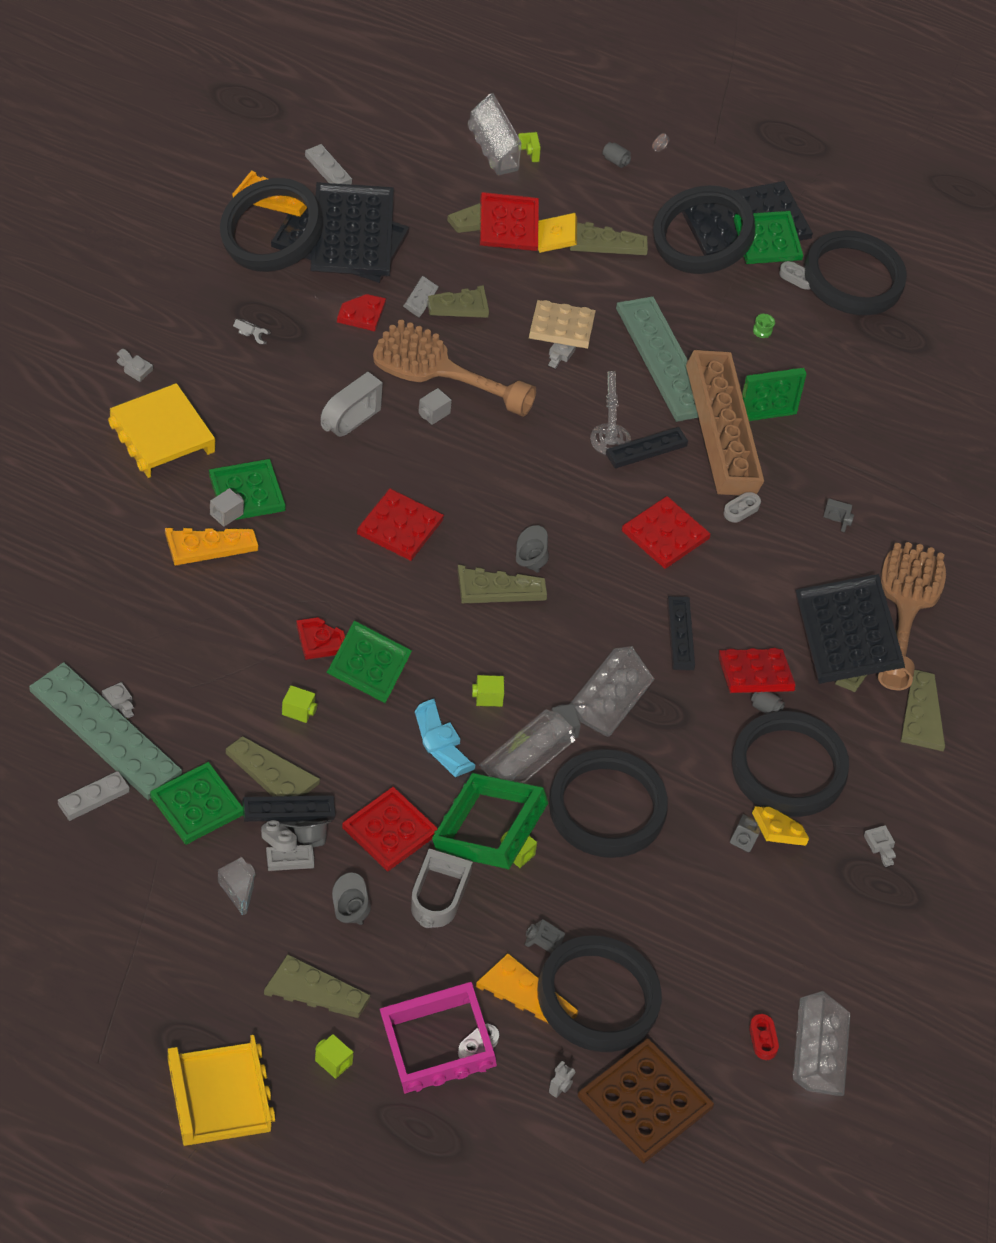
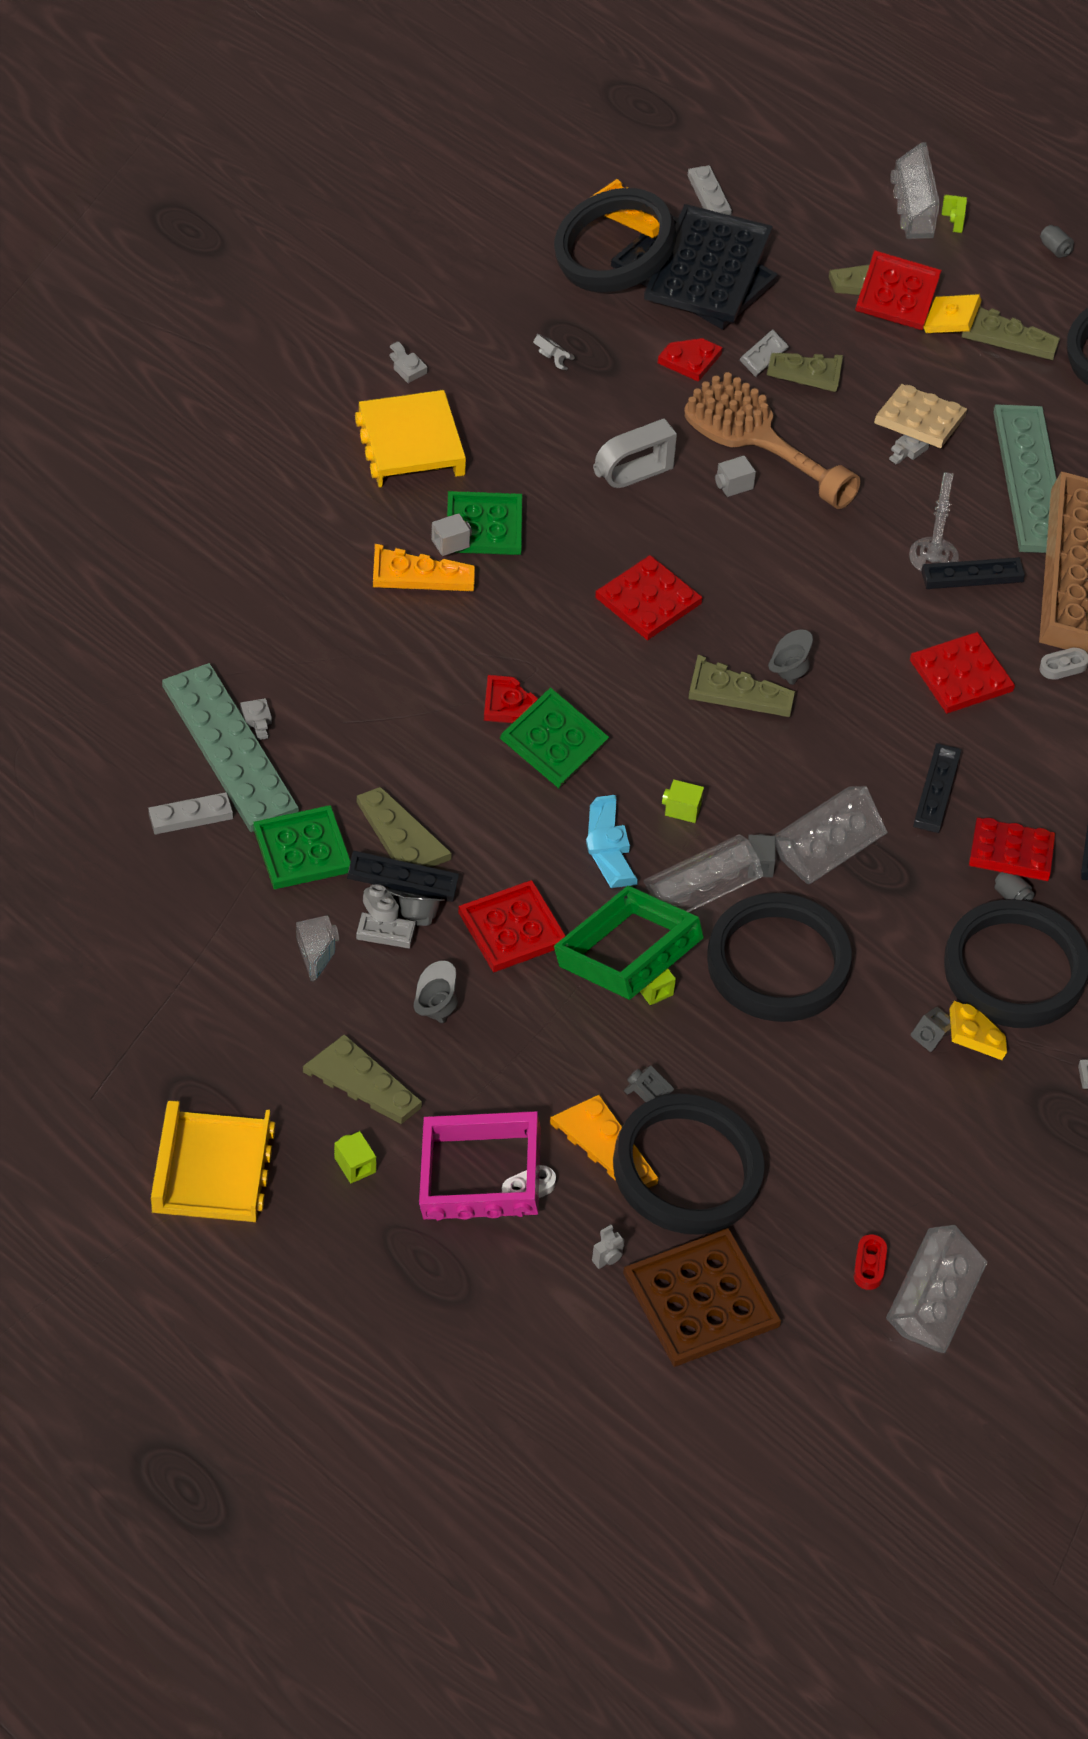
camera: 20 degrees right, 0 degrees up
(299, 704) = (457, 766): lime brick -> none
(446, 865) = (560, 979): light grey window -> none

